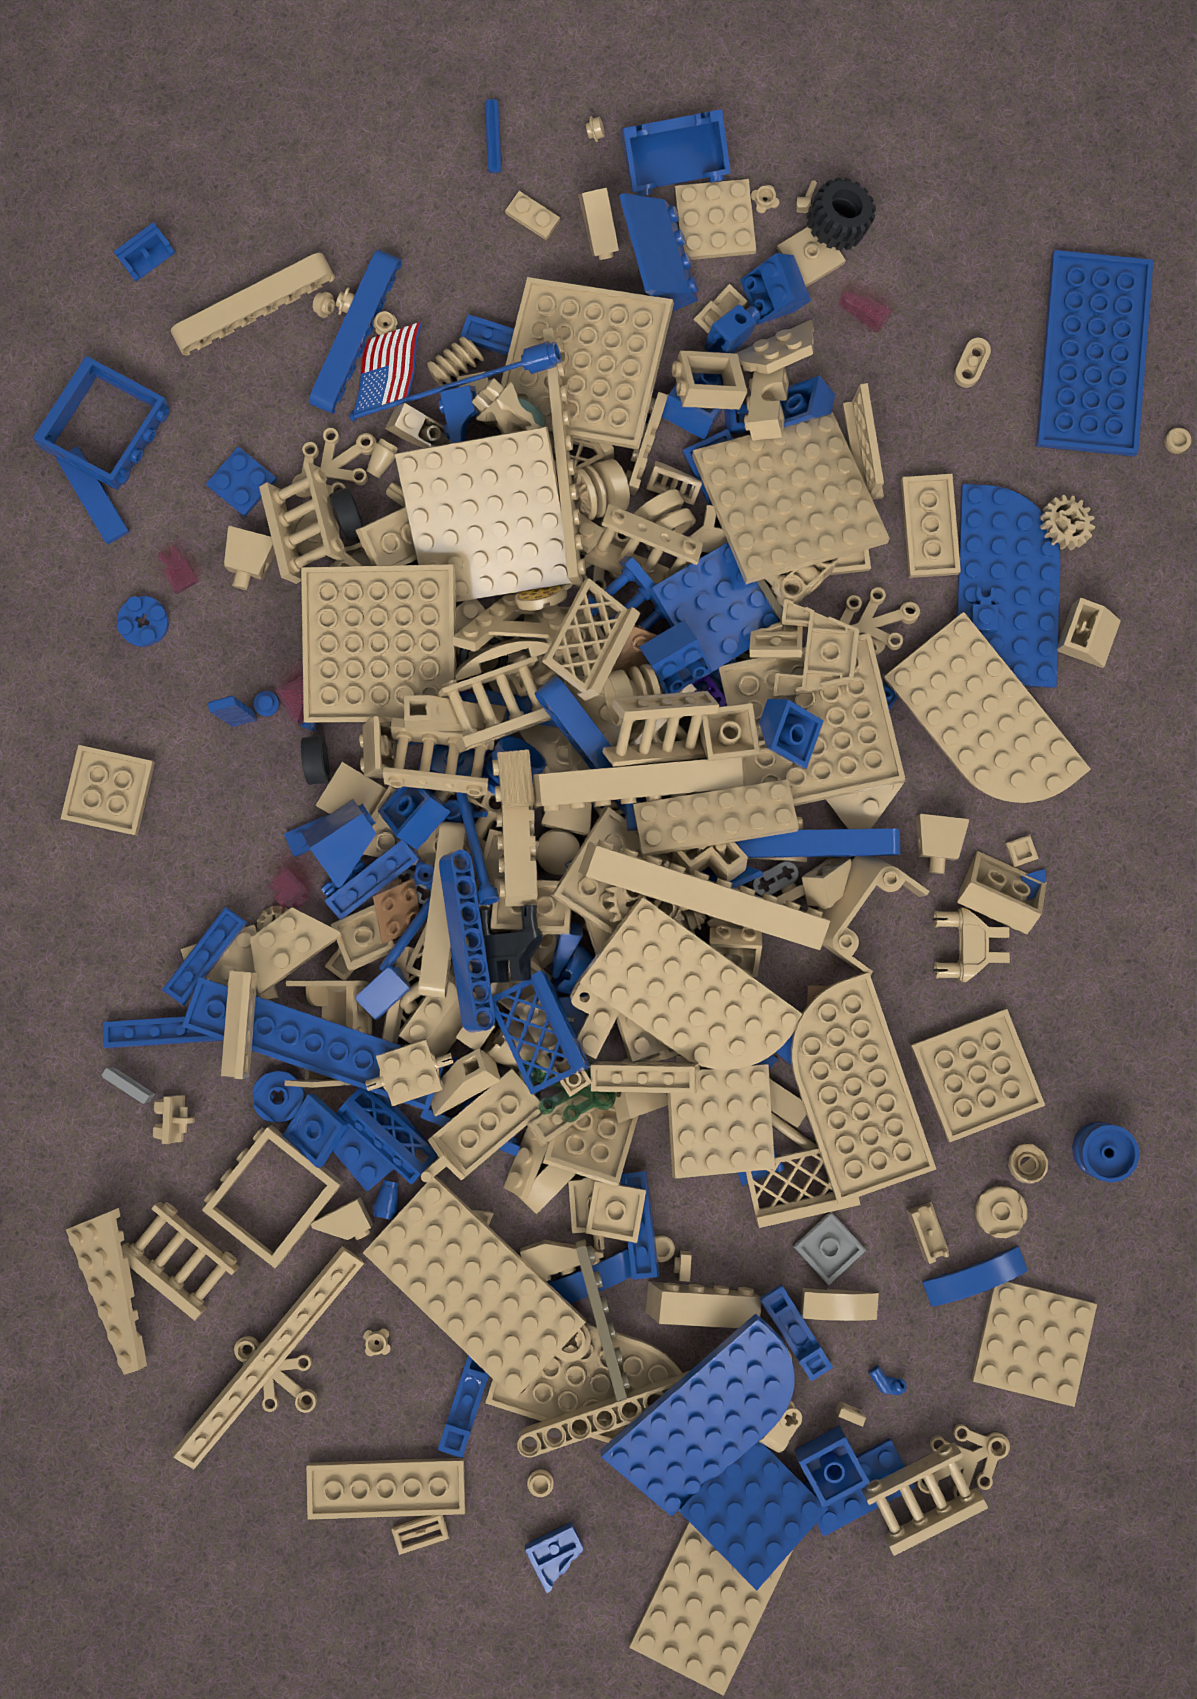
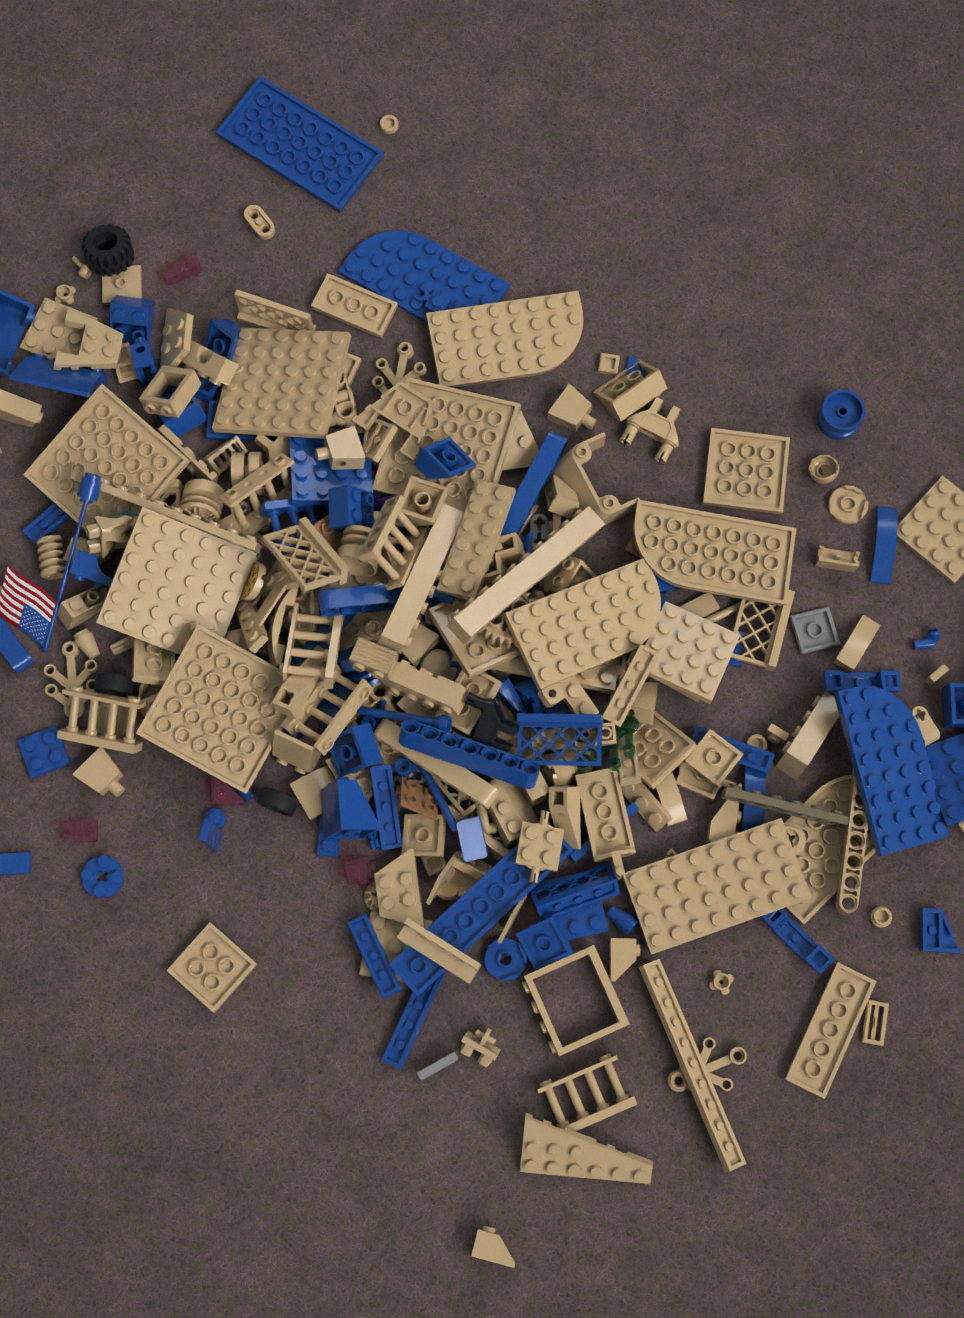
camera: 60 degrees left, 10 degrees down
(719, 271) = (98, 348): none -> tan wing
(742, 609) = (342, 450): none -> tan torso
(1067, 522) = (403, 219): tan gear -> none
(1088, 632) = (485, 244): tan slope -> none

